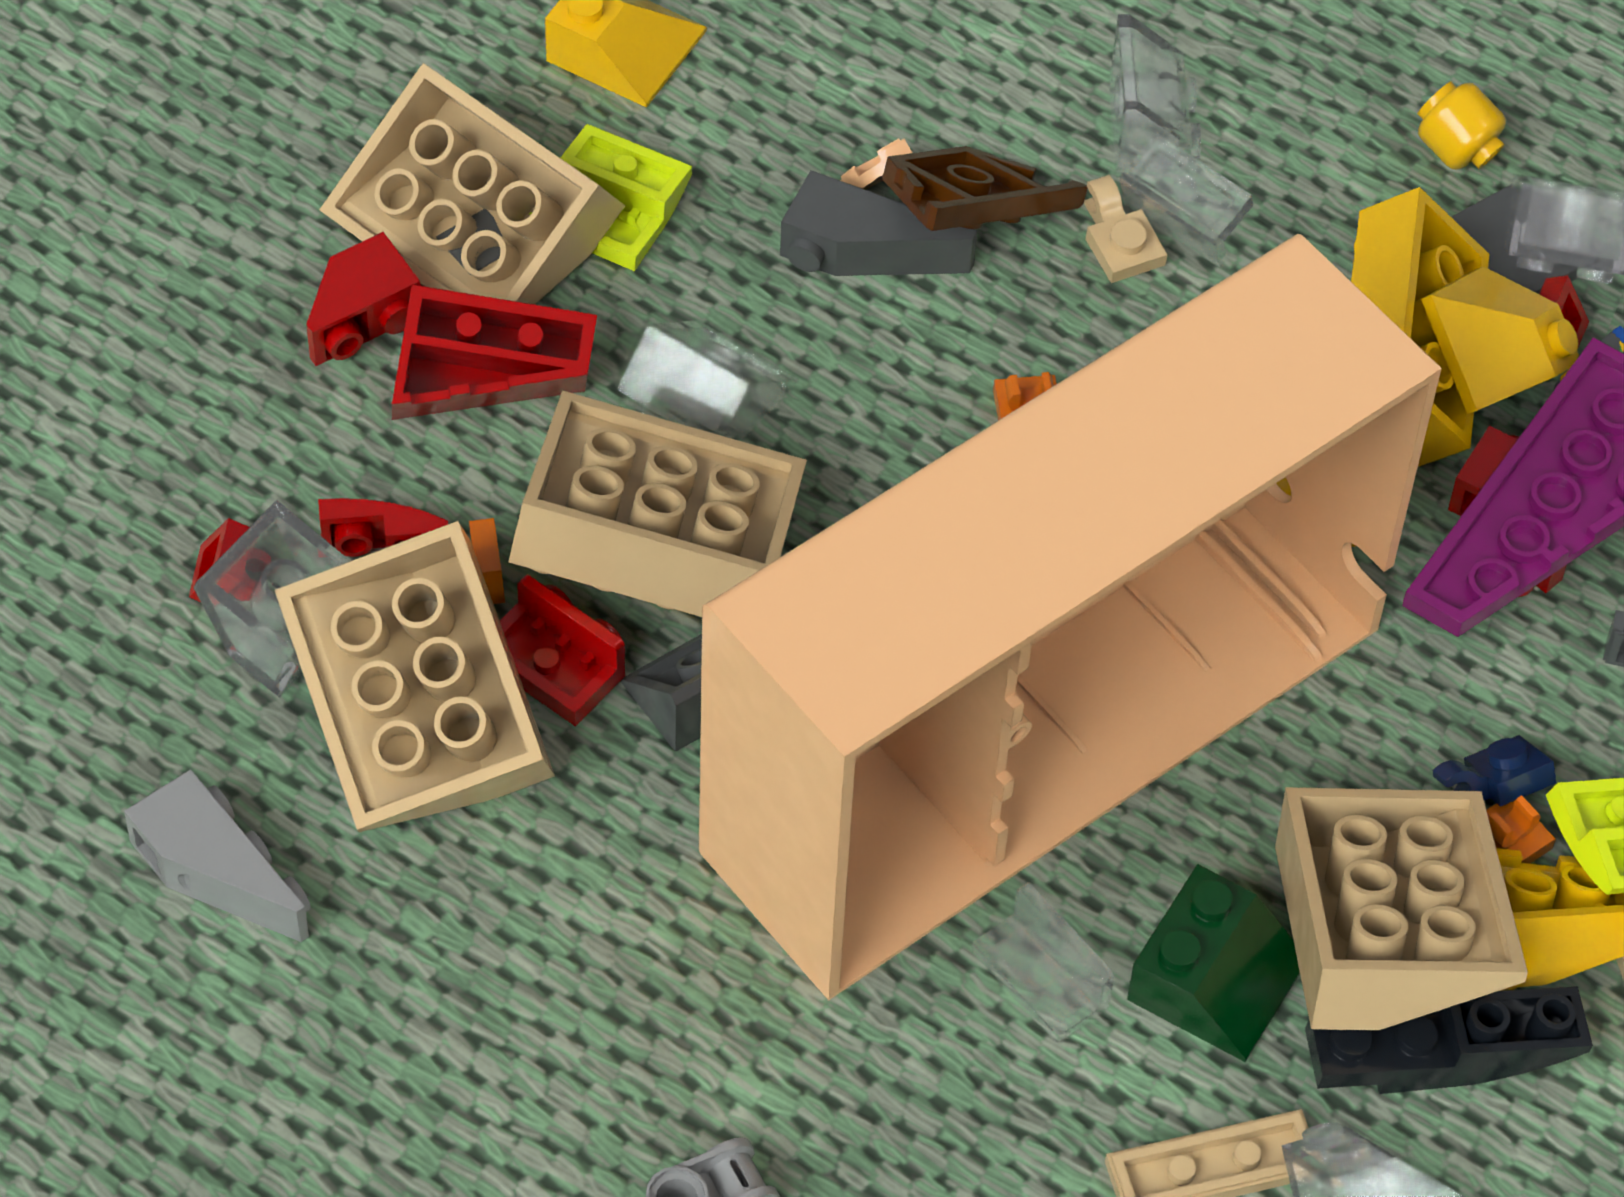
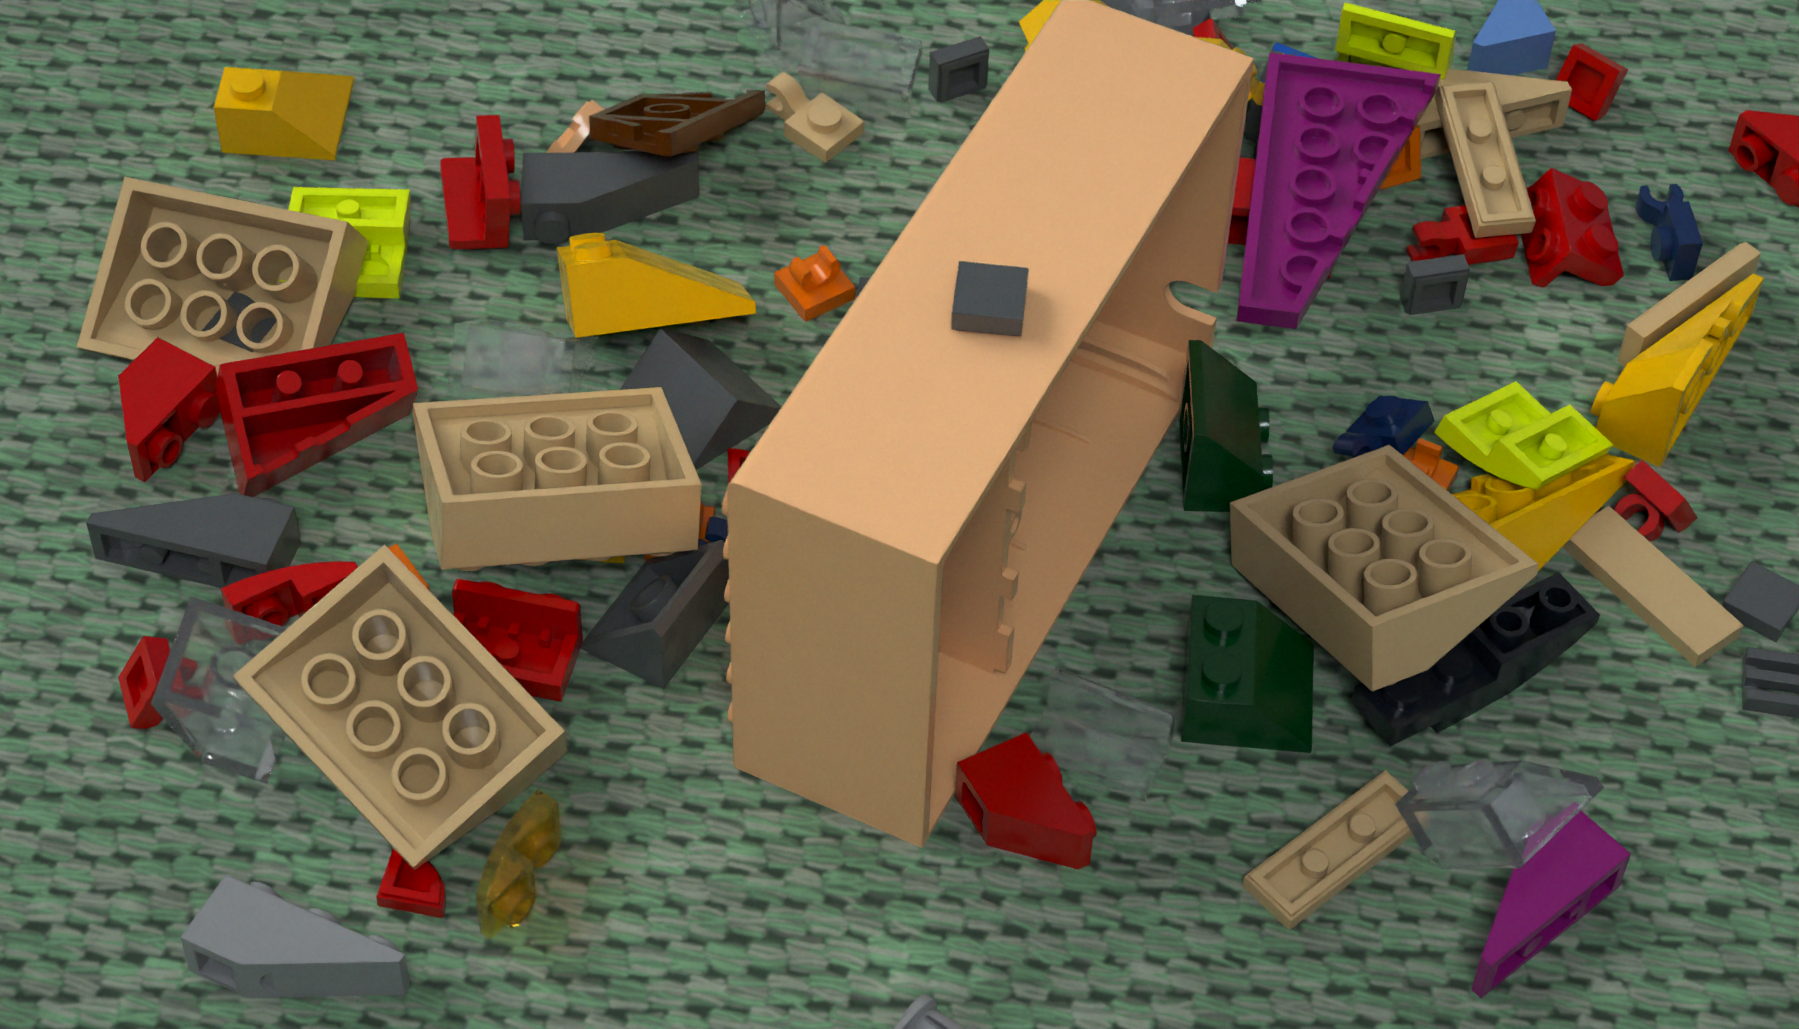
camera: 25 degrees left, 5 degrees down
(334, 444) = (199, 538): none -> dark grey slope
(354, 850) = (412, 890): none -> red tile
(431, 877) = (508, 881): none -> clear yellow slope
(754, 191) = (478, 190): none -> red bracket
(848, 350) = (628, 288): none -> yellow slope
(848, 463) = (706, 393): none -> dark grey slope
(933, 998) = (1022, 806): none -> red slope
(1036, 519) = (989, 298): none -> dark grey tile
(1281, 224) = (958, 69): none -> dark grey tile
(1327, 712) = (1220, 433): none -> dark green slope

